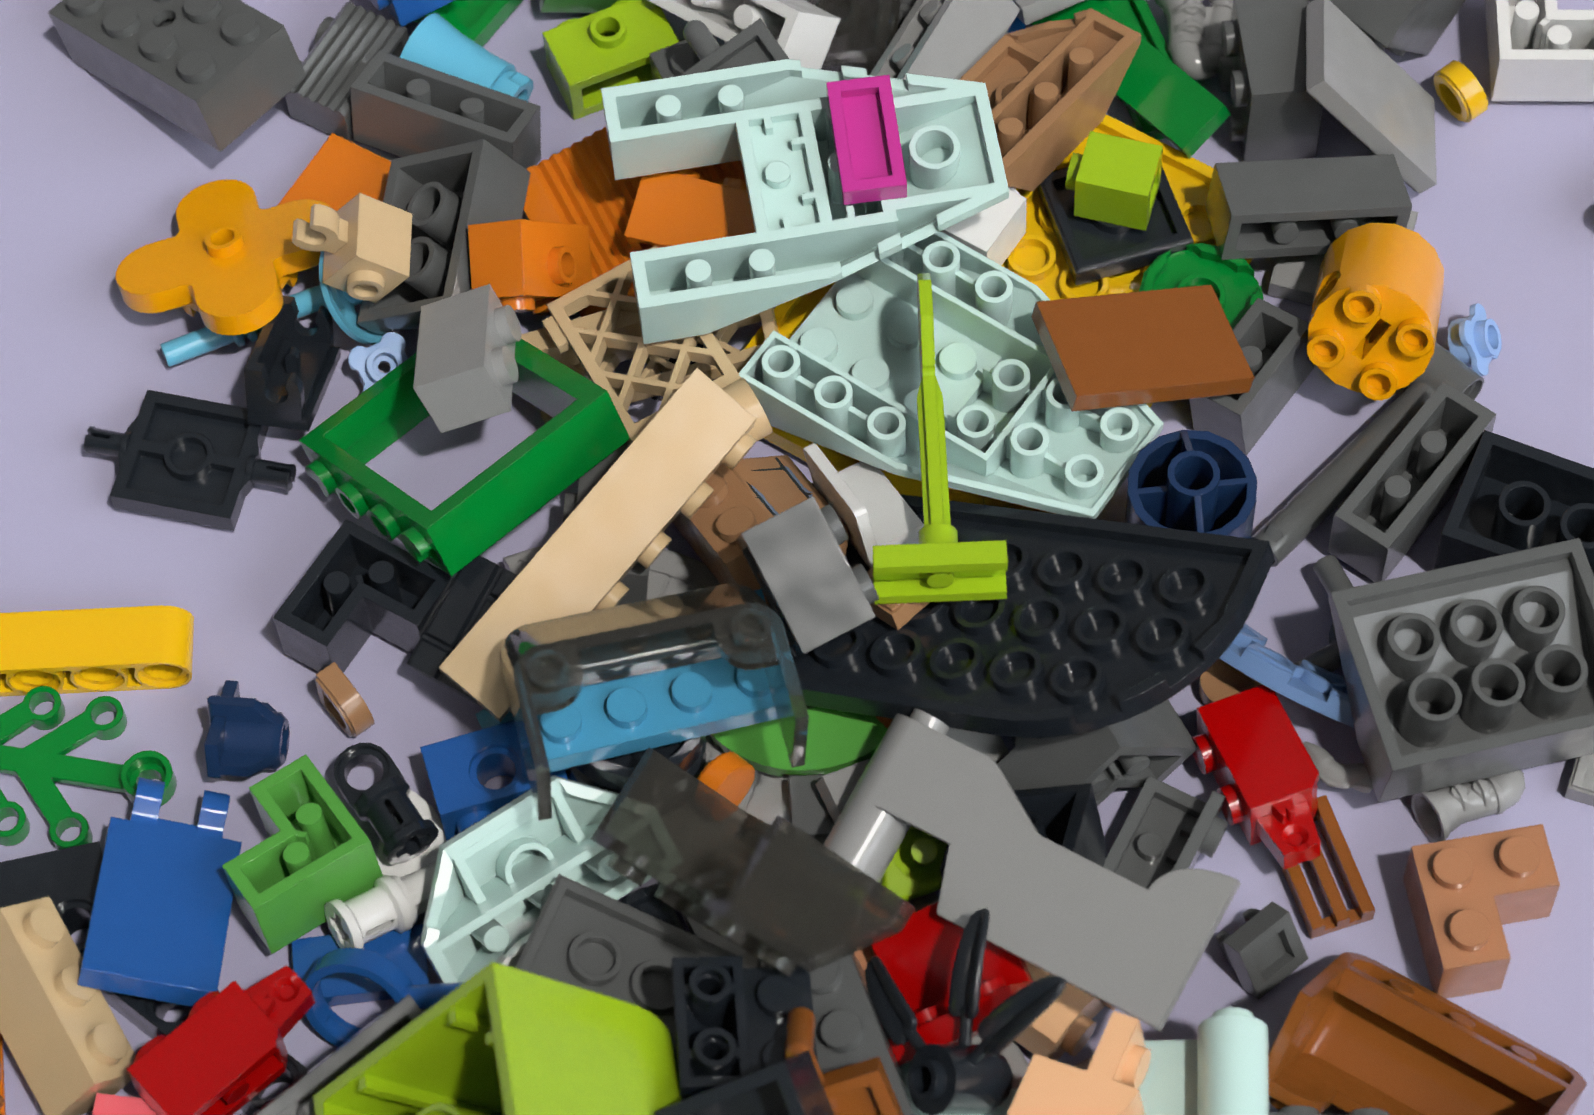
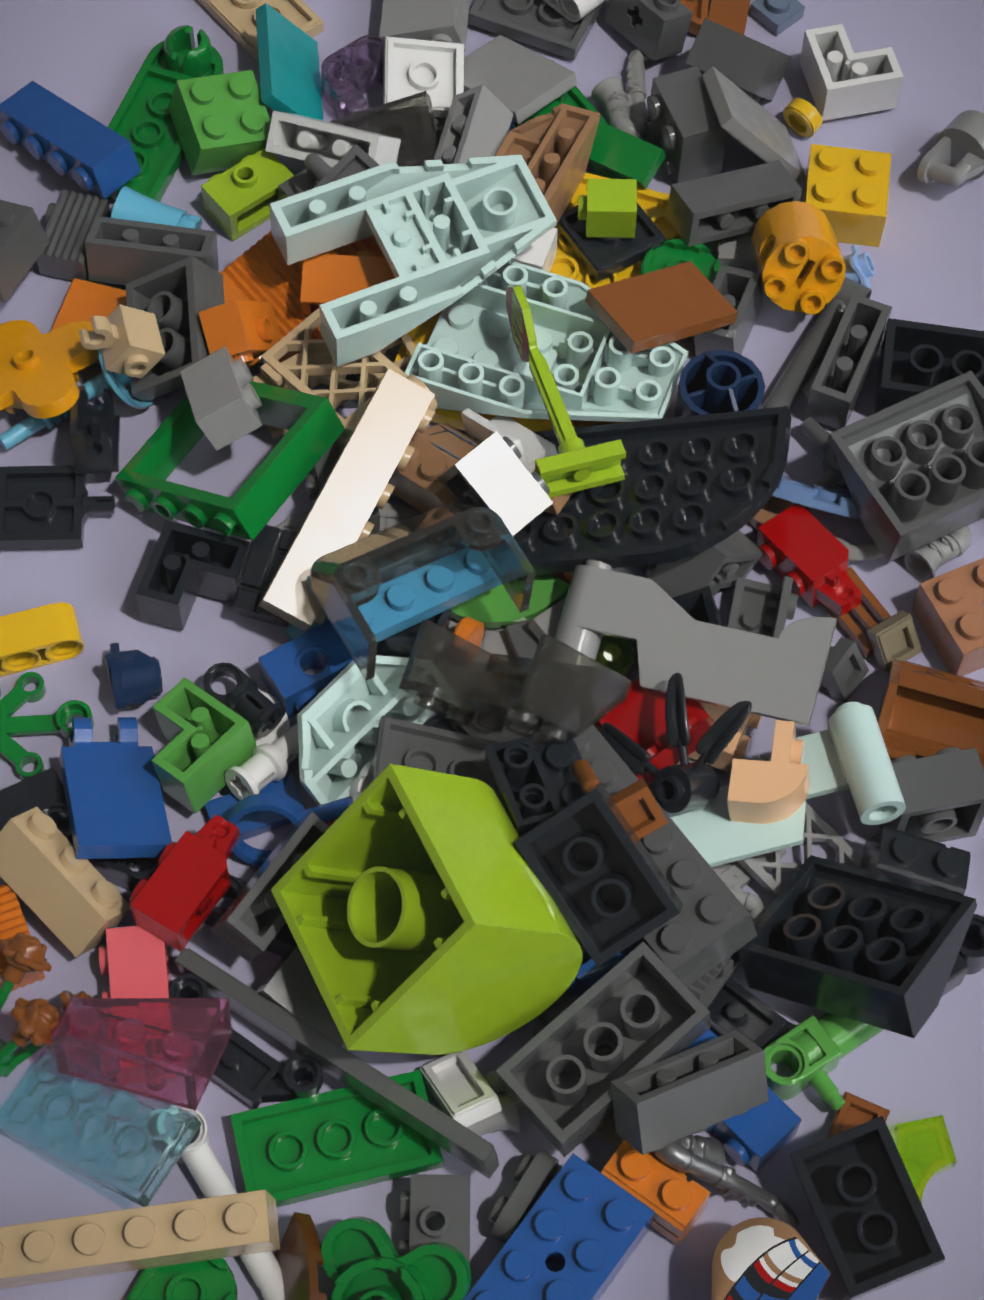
camera: 20 degrees left, 0 degrees up
(343, 701) = (193, 641): medium nougat tile -> none
(367, 359) = (143, 418): light blue plate -> none
(866, 139) = (456, 203): dark pink tile -> none
(1356, 921) = (894, 640): none -> dark tan tile
(1492, 221) = (850, 190): none -> yellow brick

